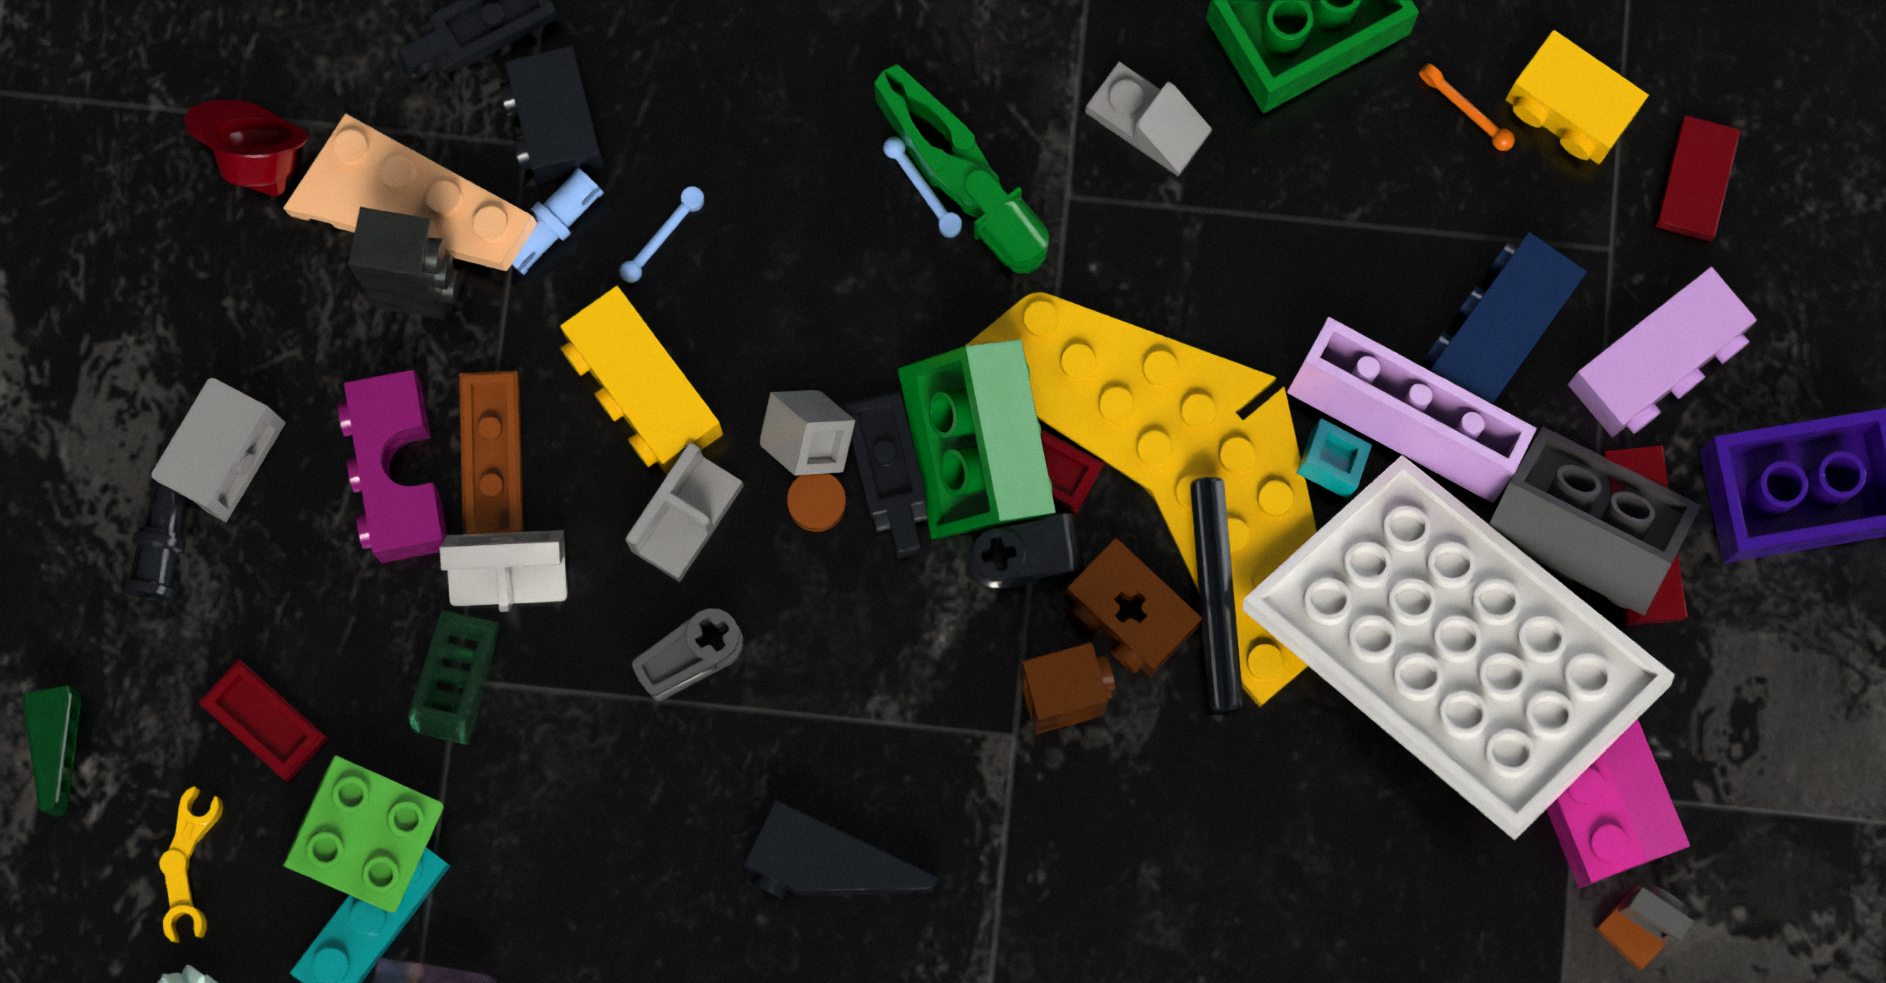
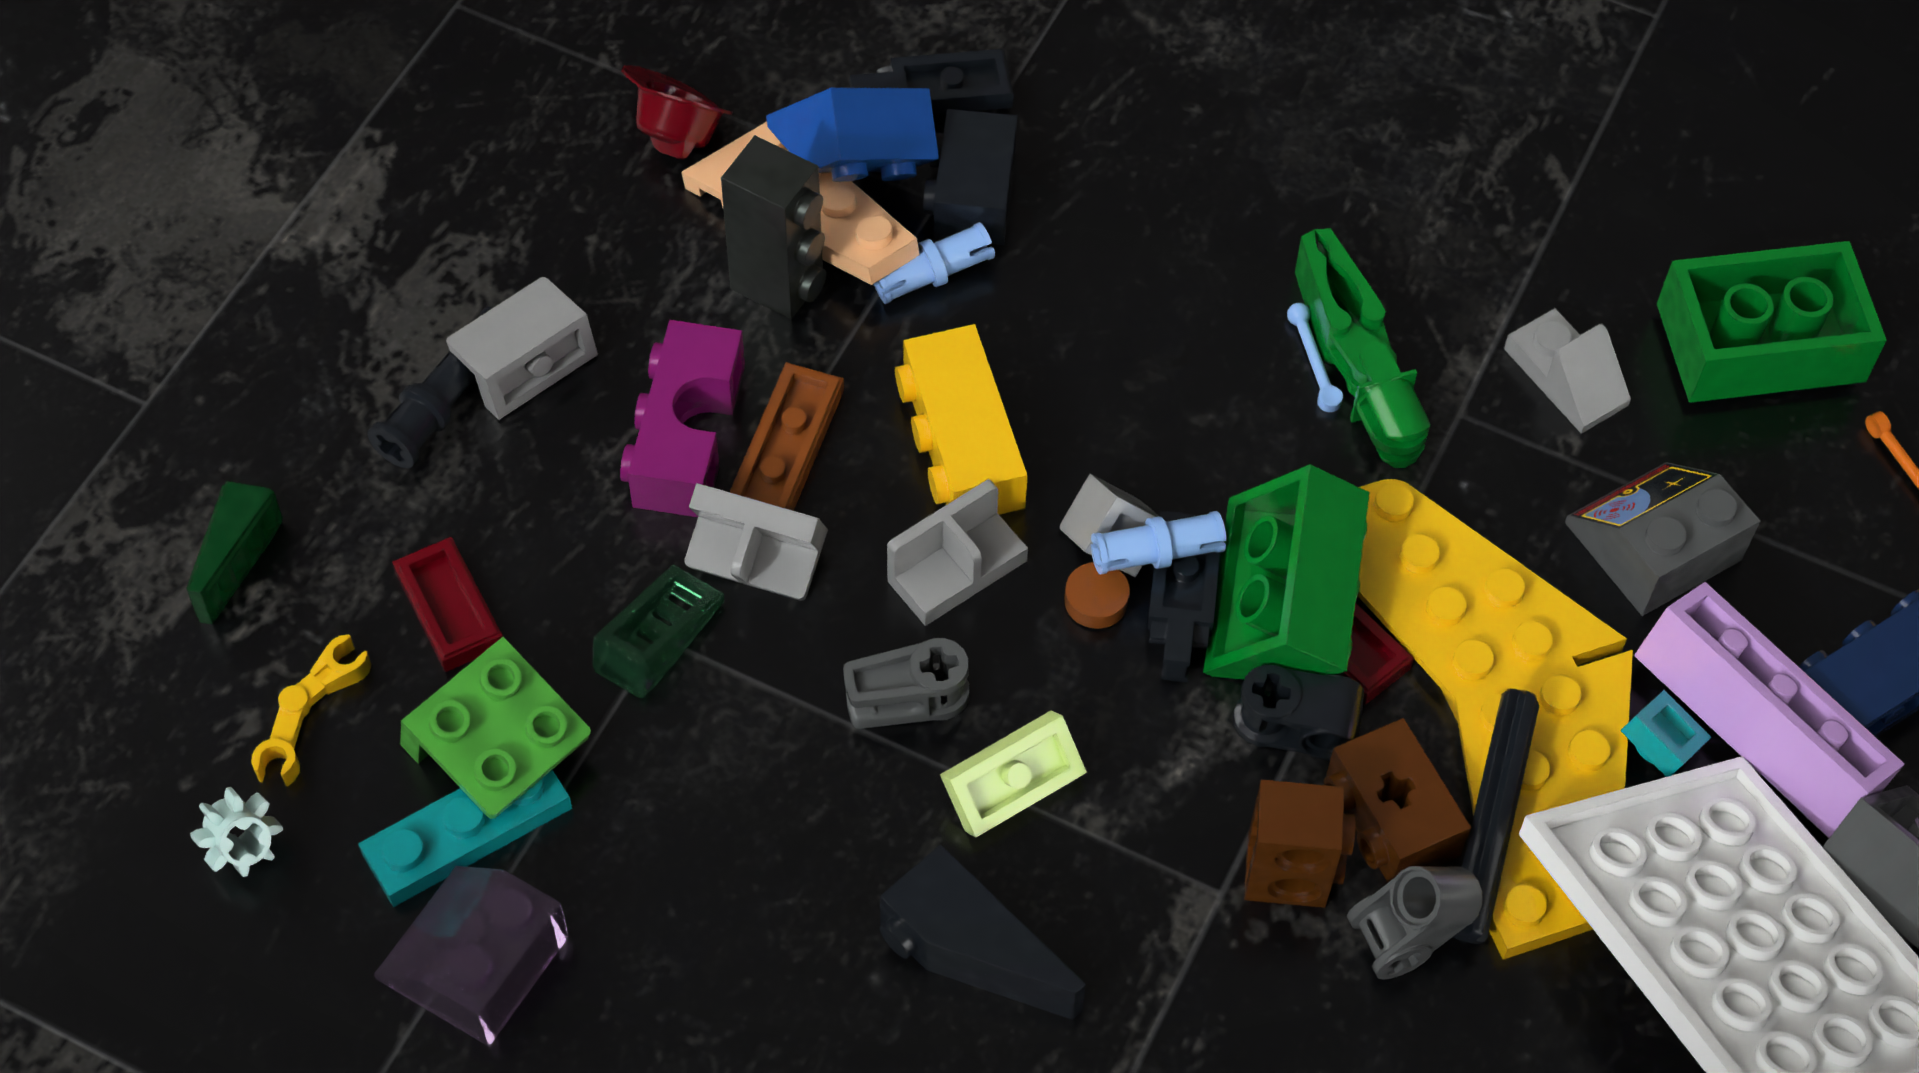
camera: 20 degrees right, 20 degrees down
(435, 125) = (860, 131): none -> blue slope
(692, 200) = (1078, 296): light blue hinge -> none
(808, 702) = (1013, 773): none -> yellowish green plate
(855, 446) = (1158, 542): none -> light blue pin
(1182, 709) = (1416, 916): none -> dark grey piece
(1275, 258) = (1665, 532): none -> dark grey slope

